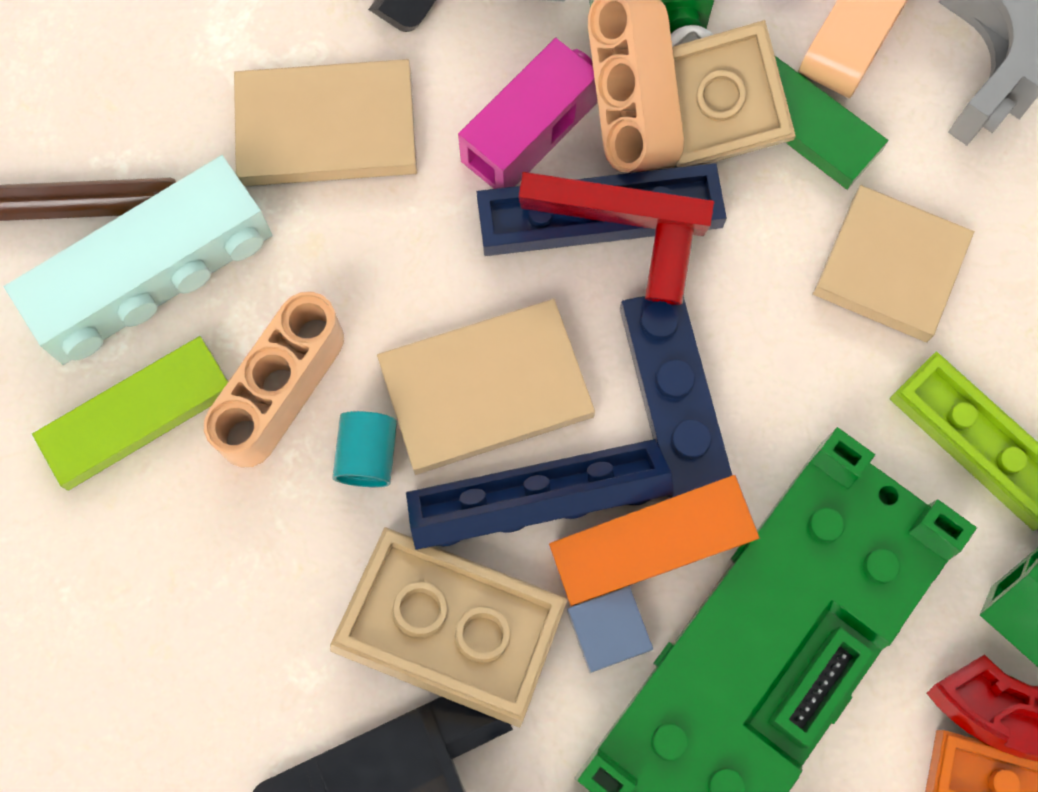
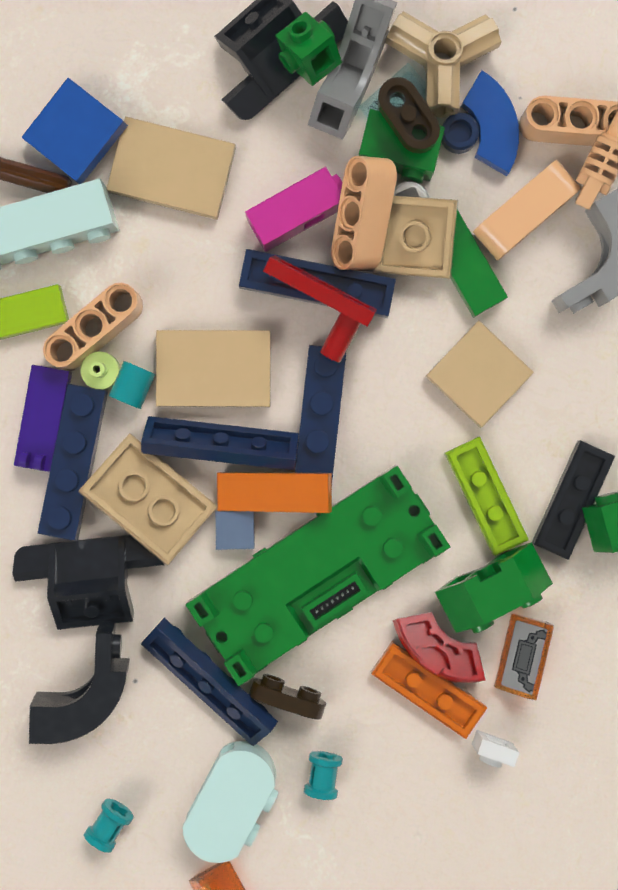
camera: 20 degrees right, 15 degrees up
(163, 112) = (74, 131): none -> blue tile
(234, 555) = (41, 417): none -> dark purple hinge
(304, 612) = (72, 462): none -> dark blue plate
(313, 458) = (108, 372): none -> yellowish green tile

